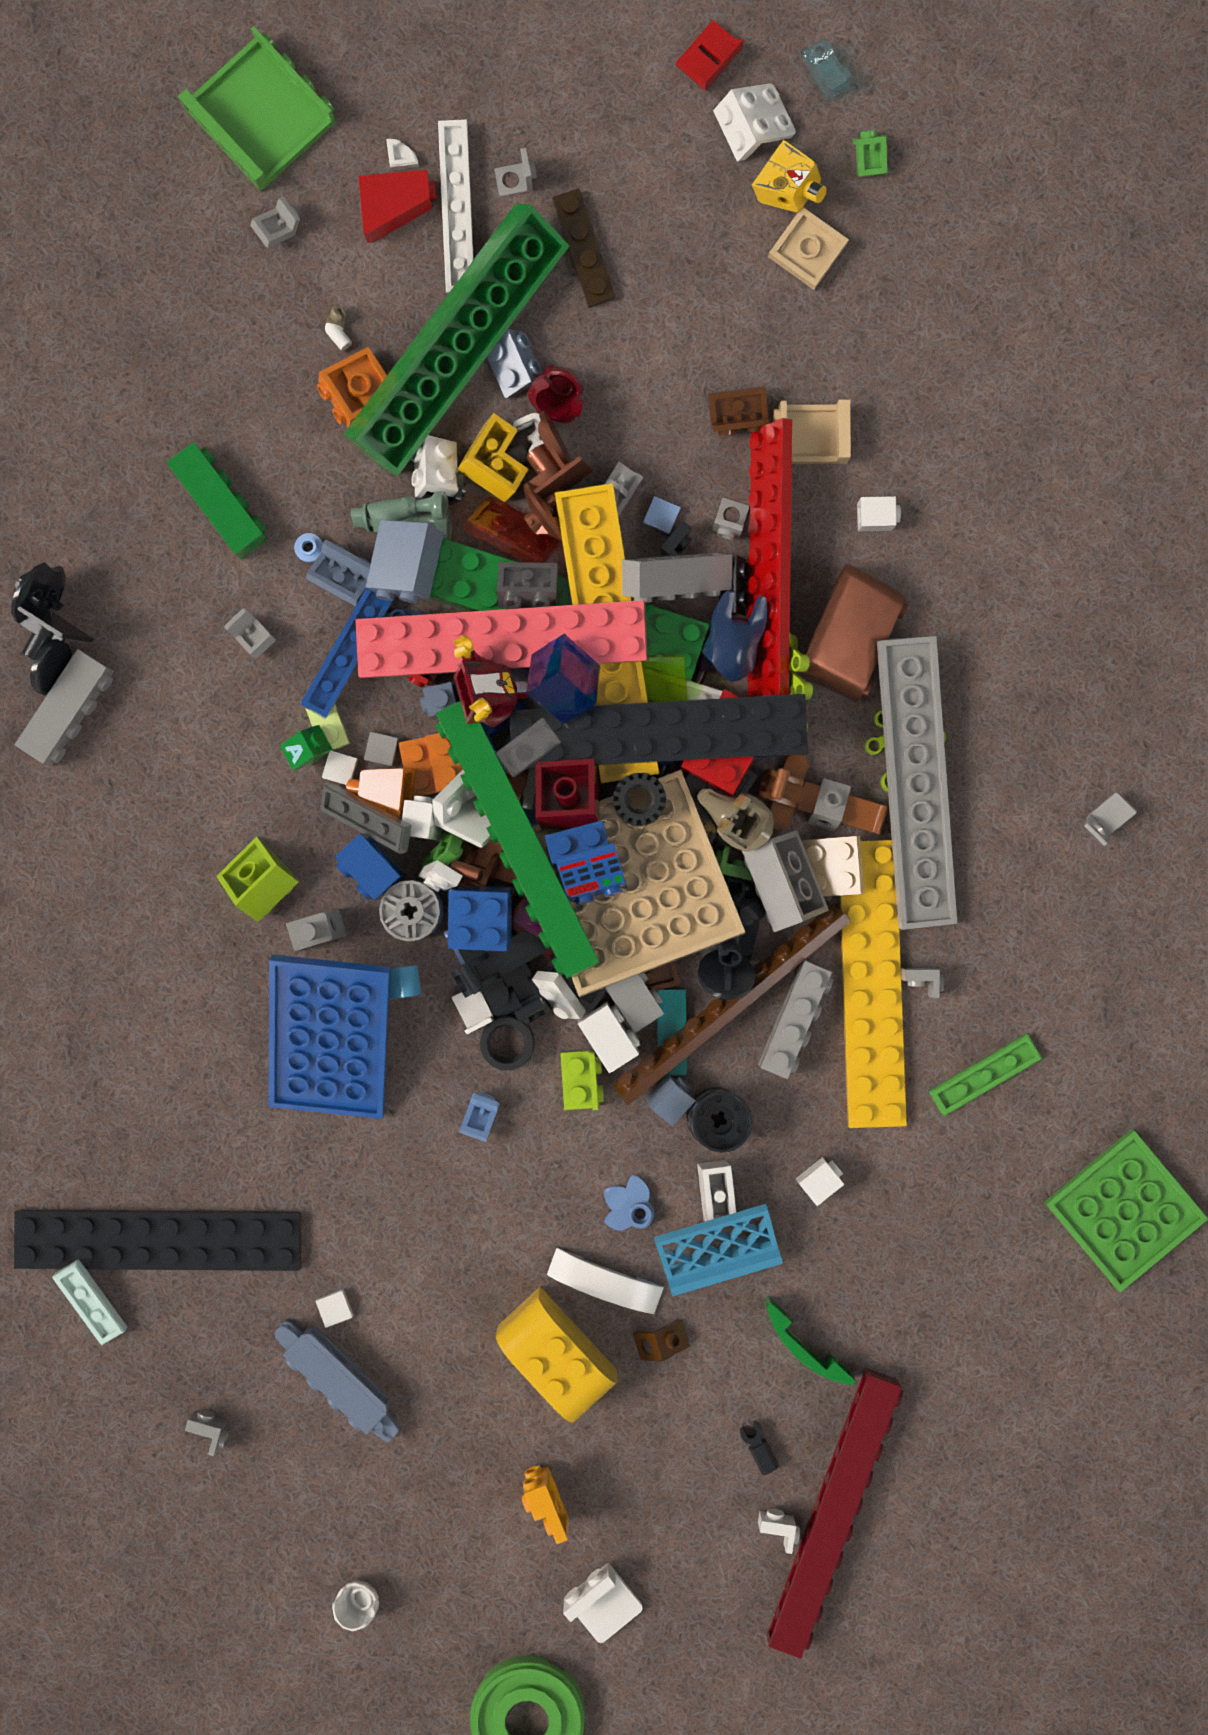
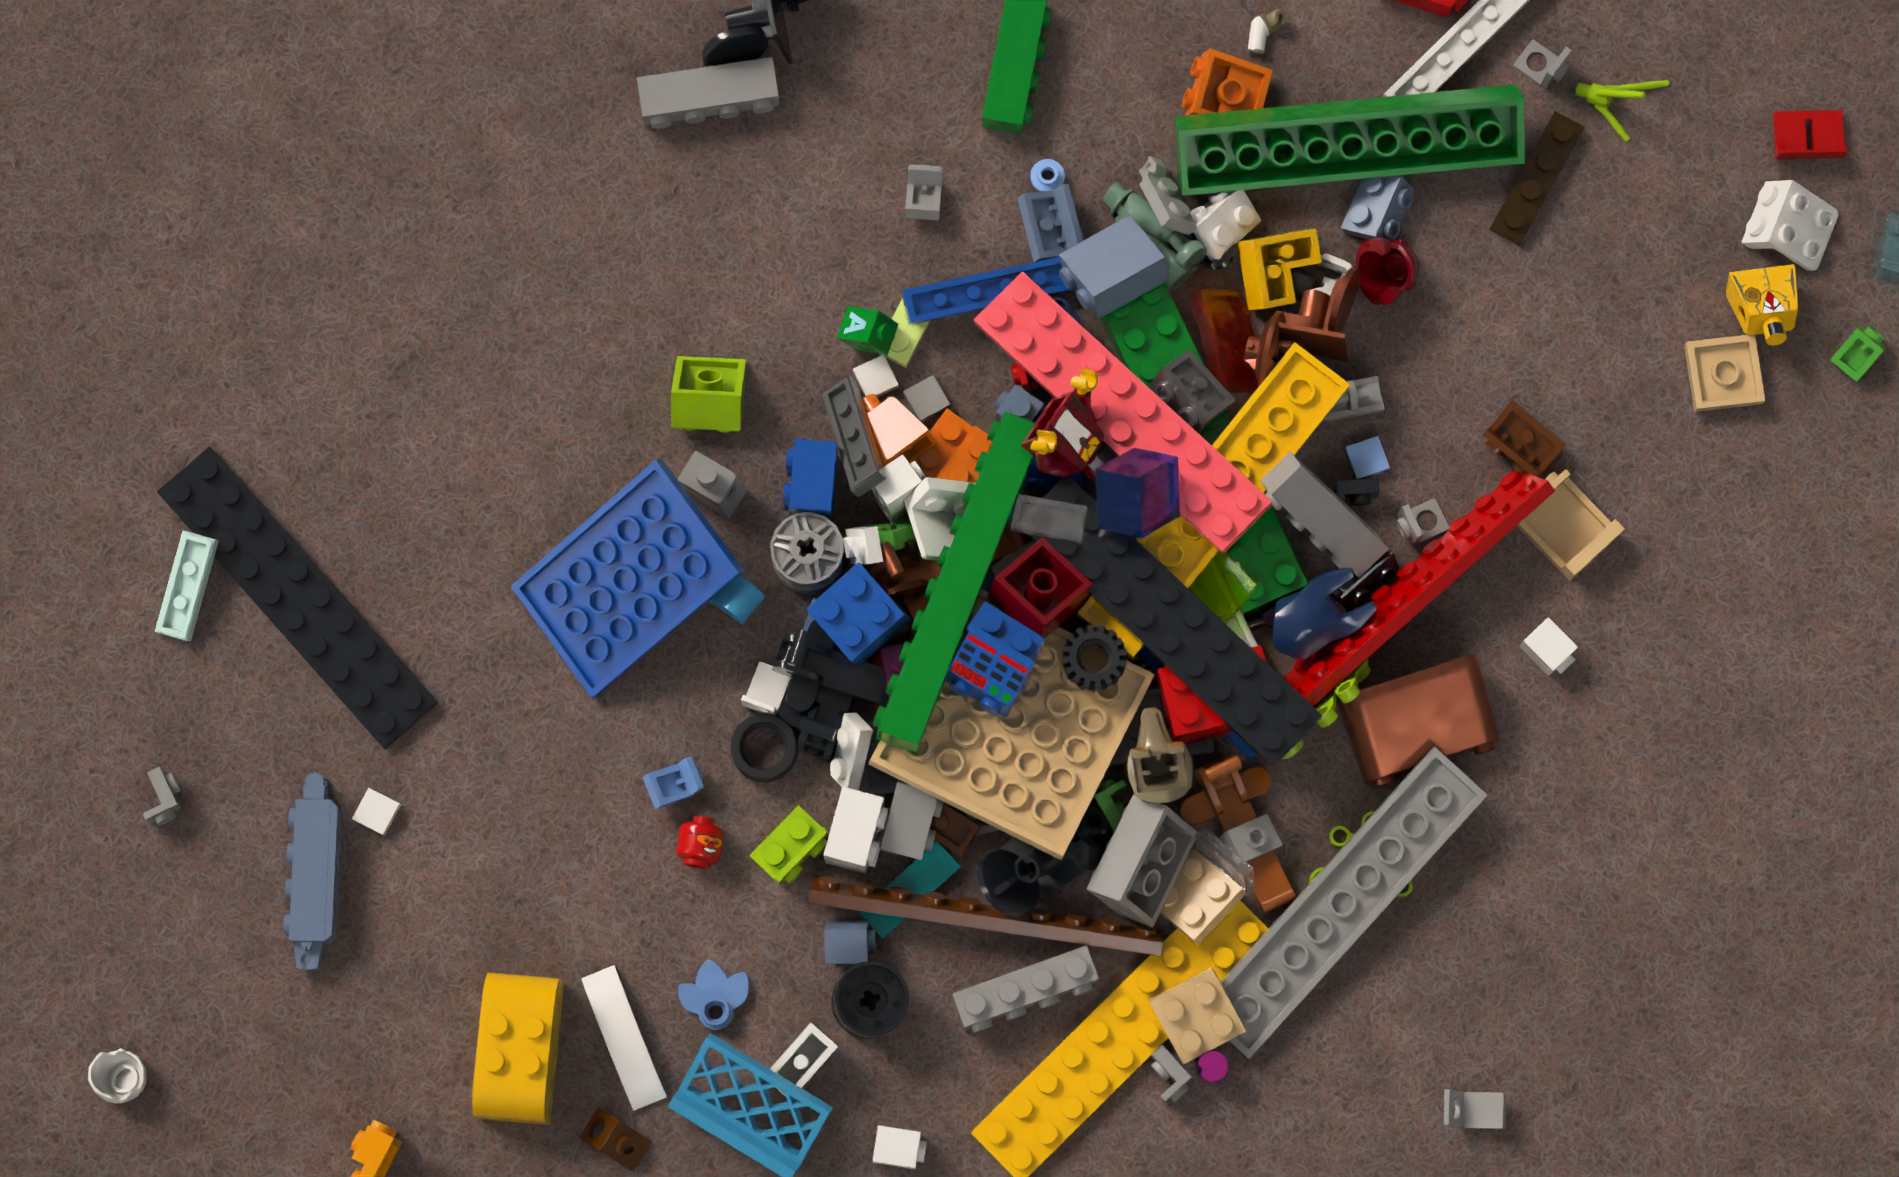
camera: 45 degrees right, 10 degrees down
(389, 488) = (1165, 198): none -> light grey hinge
(530, 1133) = (700, 843): none -> red head
(569, 160) = (1602, 96): none -> lime plant
(828, 829) = (1225, 859): none -> clear tile
(906, 932) = (1197, 1015): none -> tan plate
(942, 950) = (1212, 1067): none -> magenta piece

